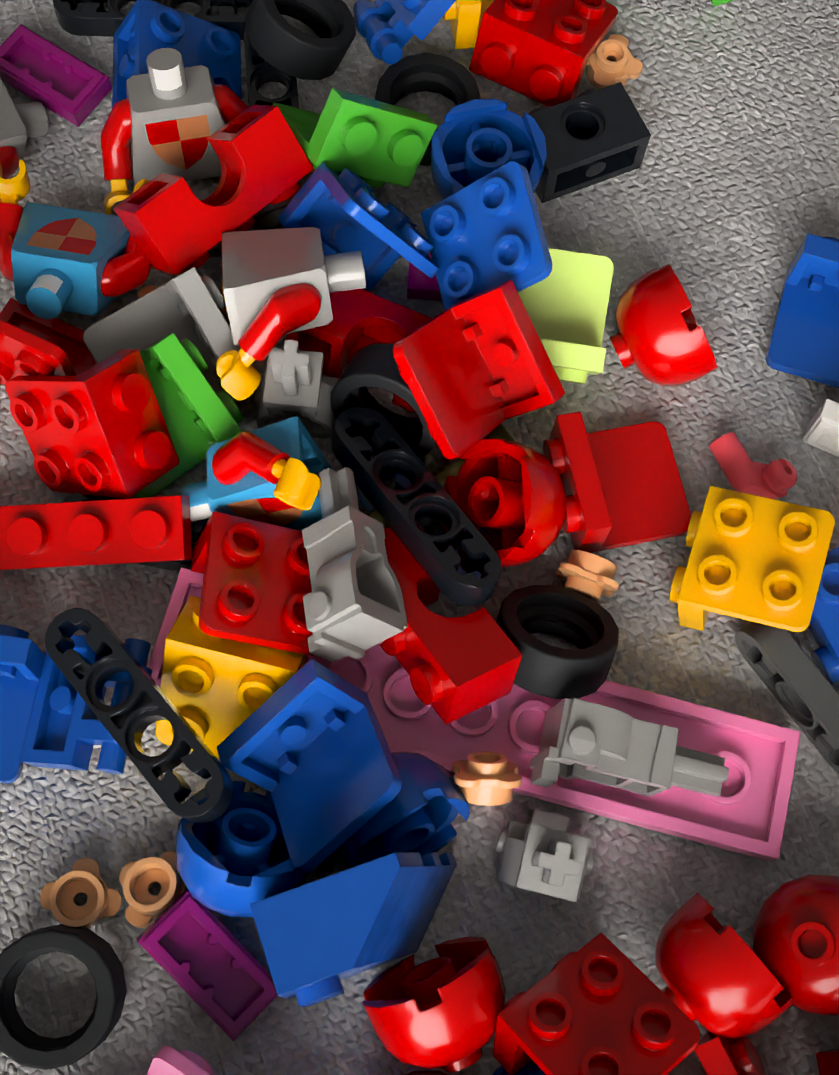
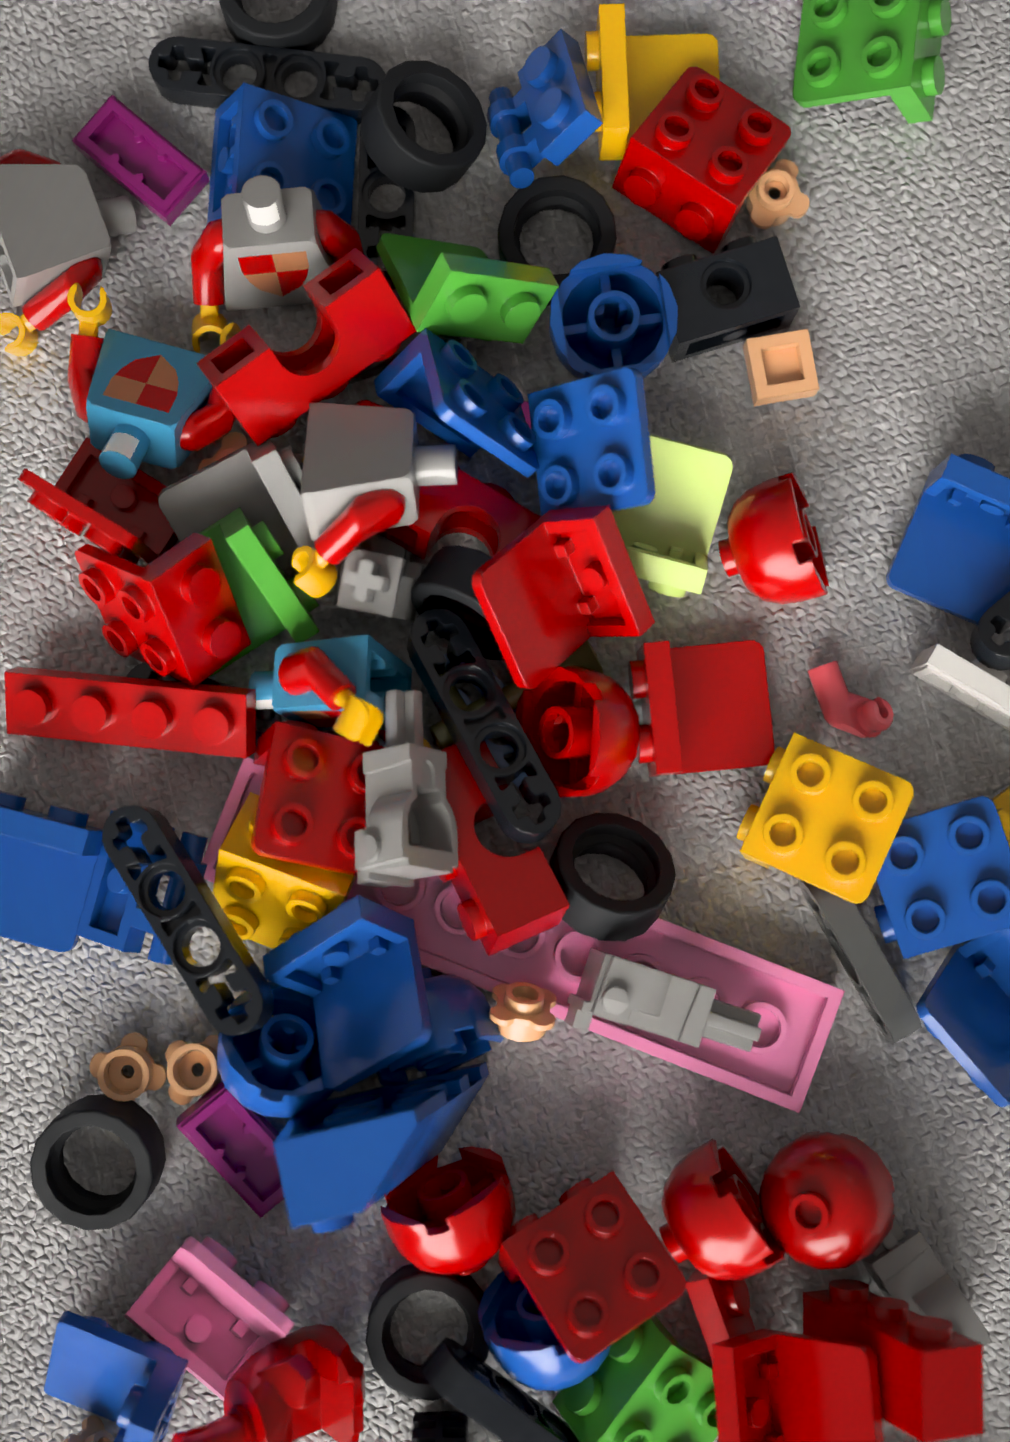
camera: 10 degrees right, 15 degrees up
(544, 856) = (570, 1090): light grey piece -> none
(588, 574) = (656, 805): light nougat plate -> none
(640, 193) = (780, 367): none -> light nougat plate

